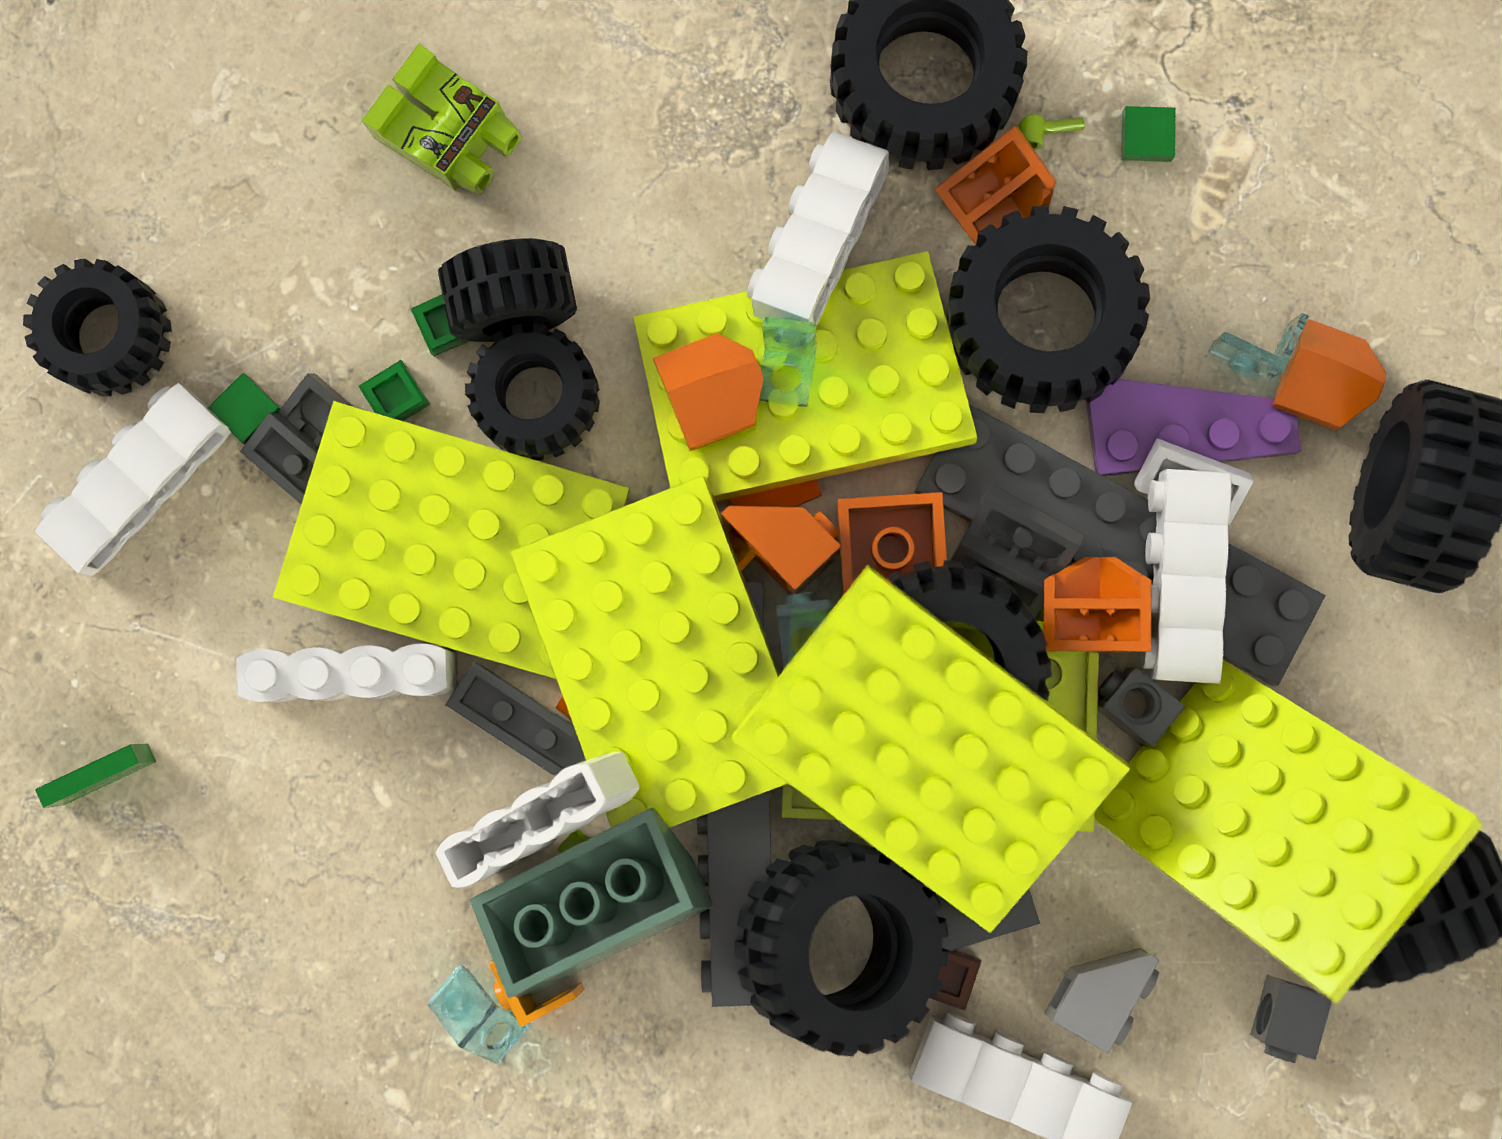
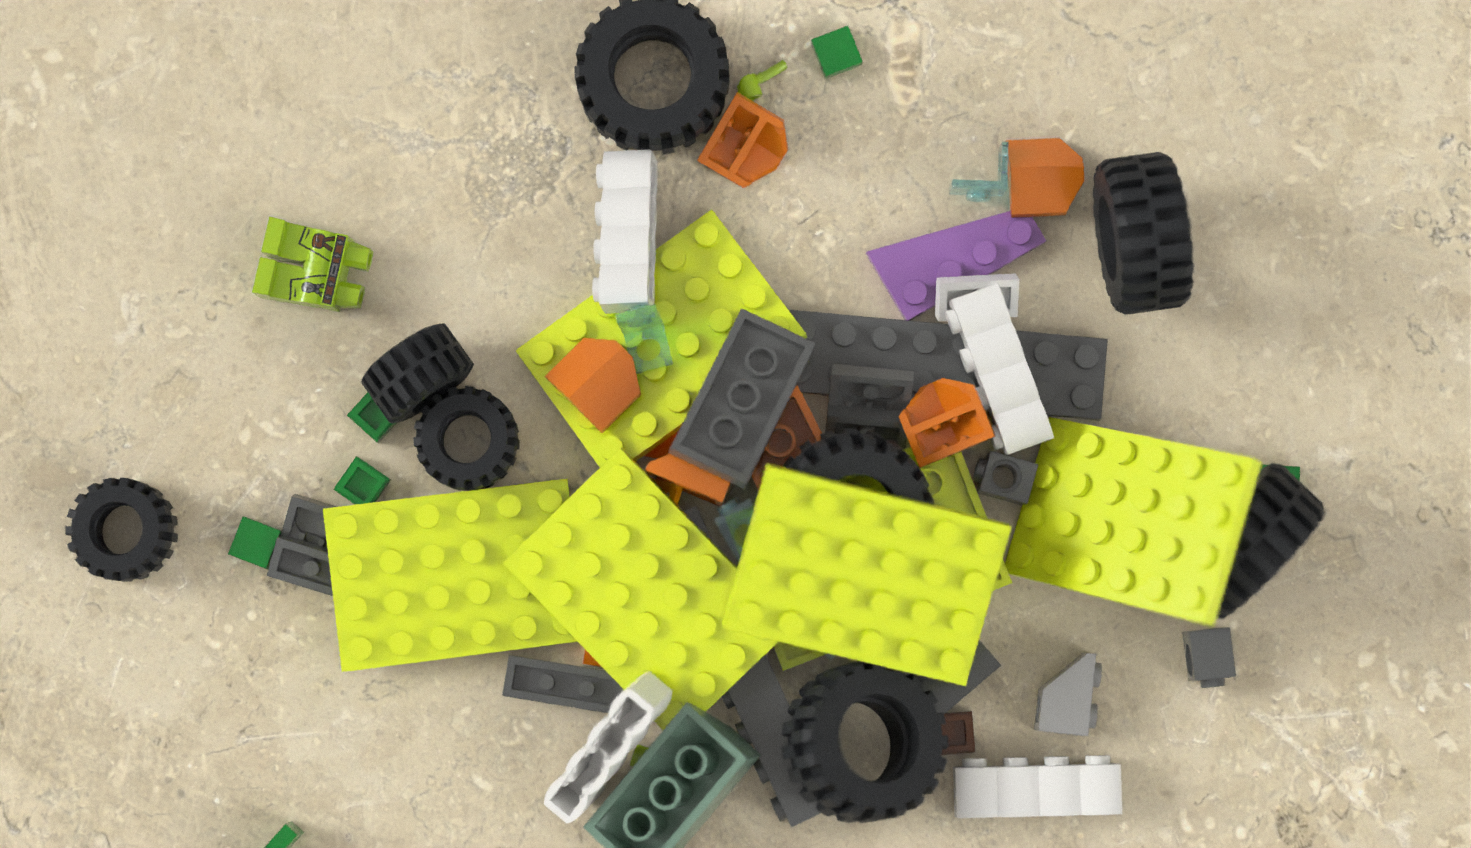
camera: 30 degrees left, 0 degrees up
(133, 481) = (197, 630): white brick -> none
(338, 674) = (410, 709): white brick -> none
(870, 479) = (742, 398): none -> dark grey plate
(1061, 247) = (807, 166): black tyre -> none

